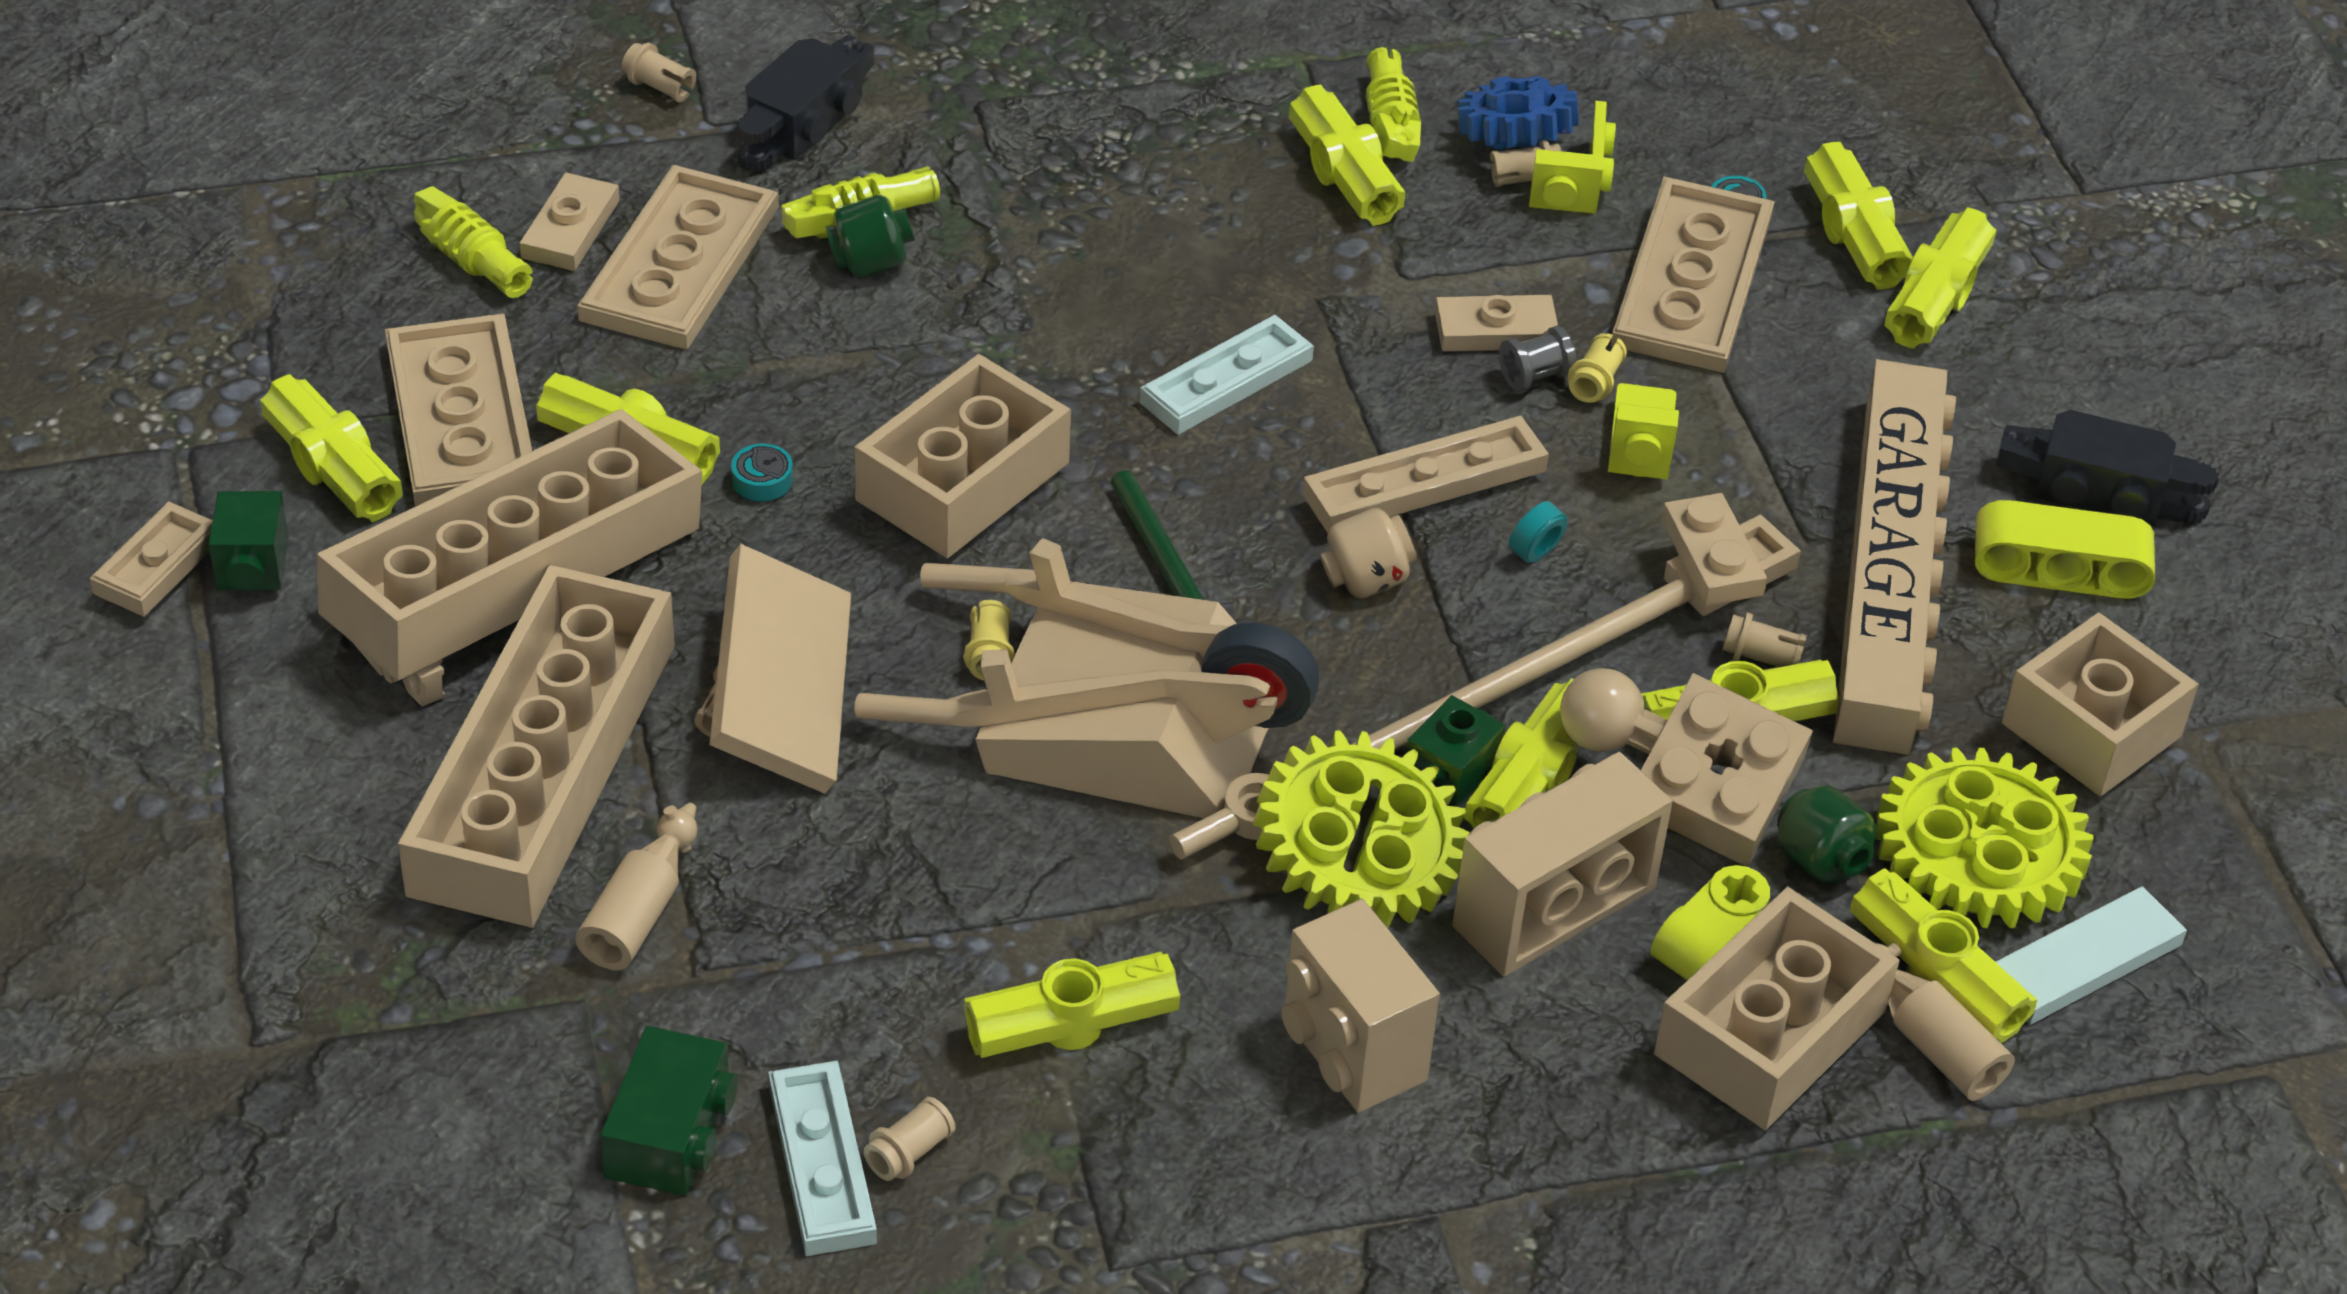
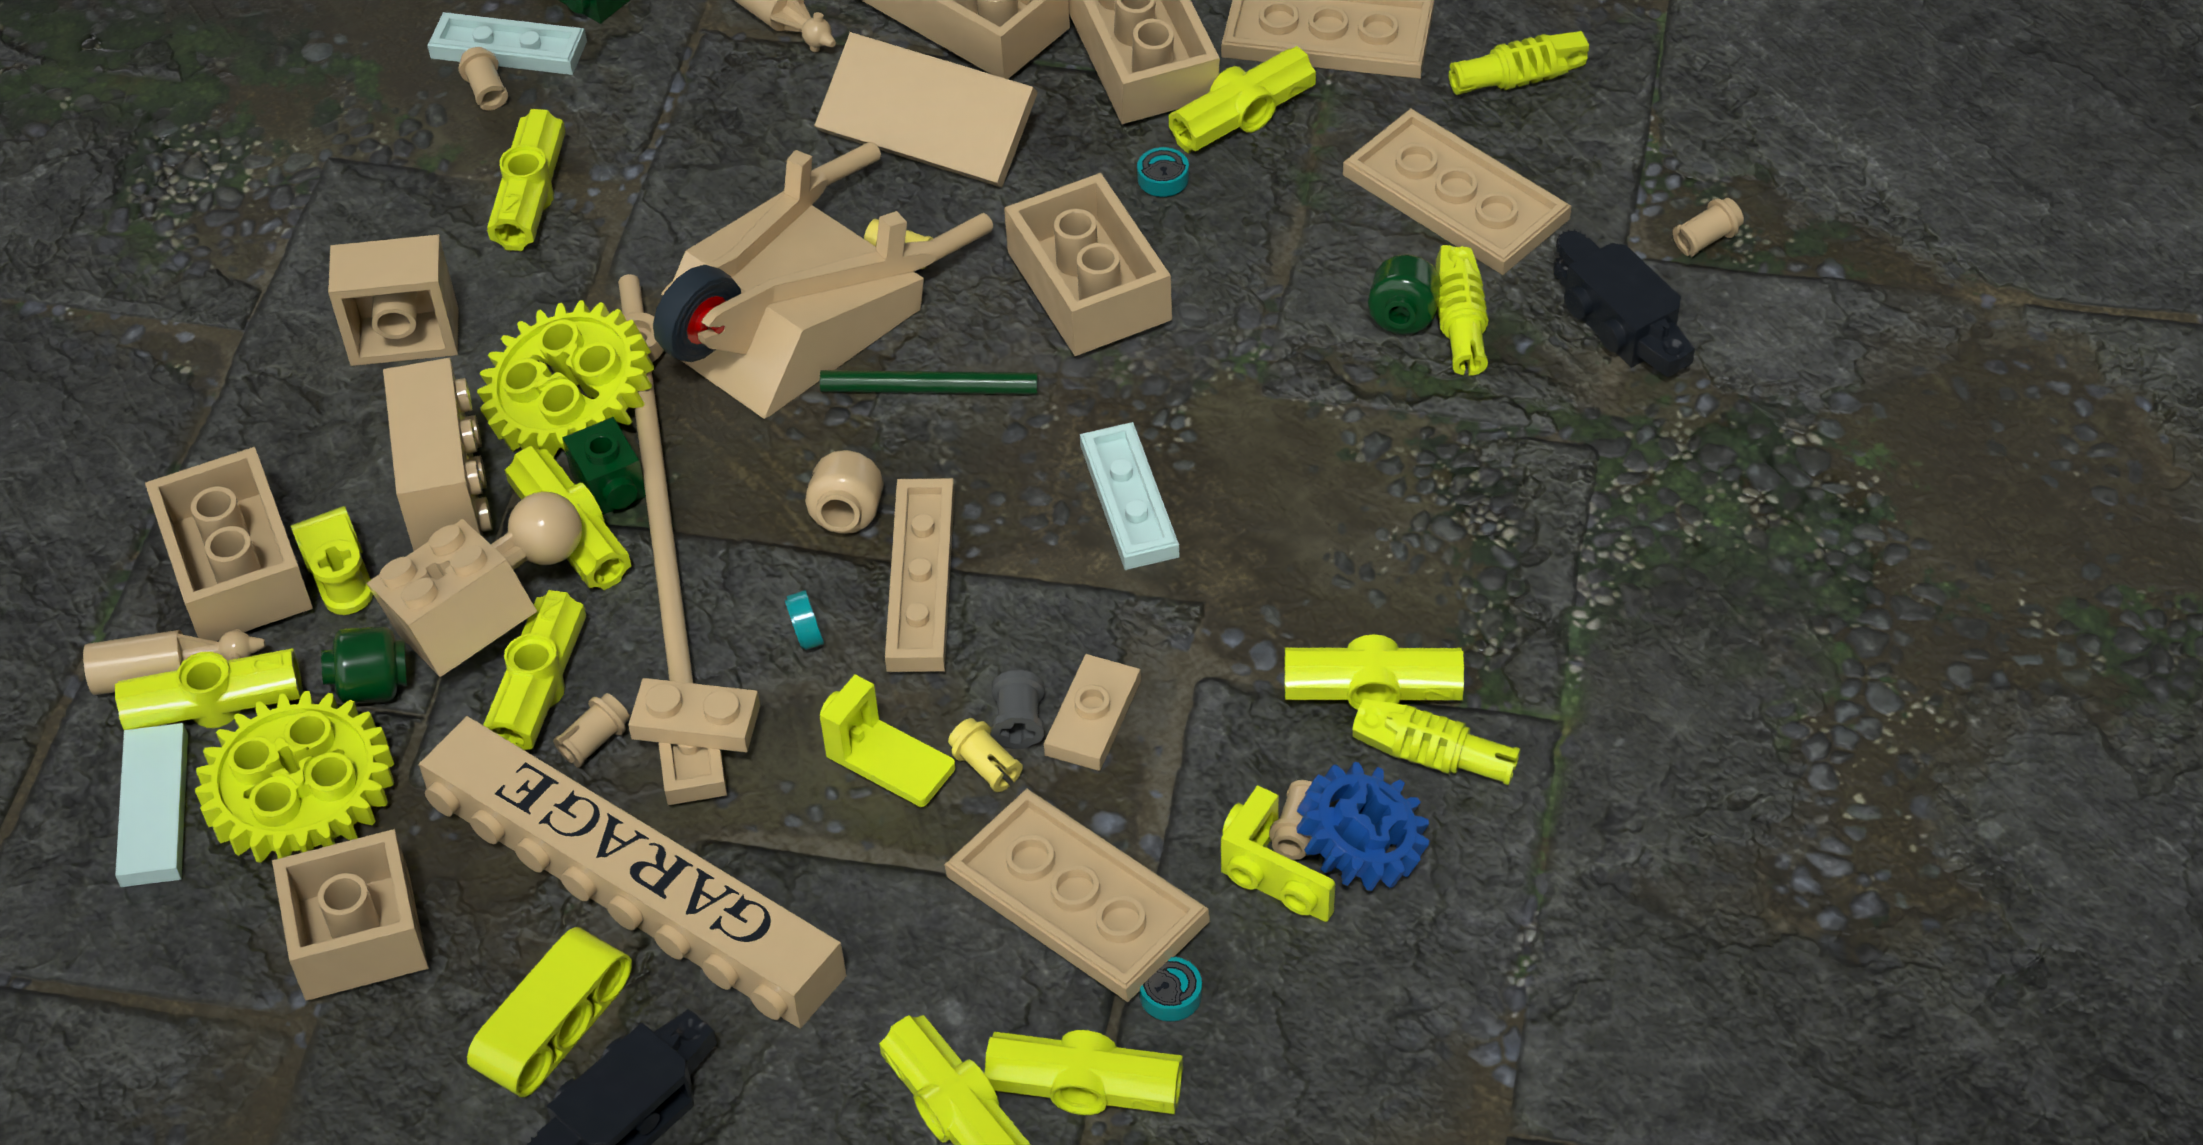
camera: 120 degrees right, 5 degrees up
(569, 221) = (1529, 133): tan plate -> none

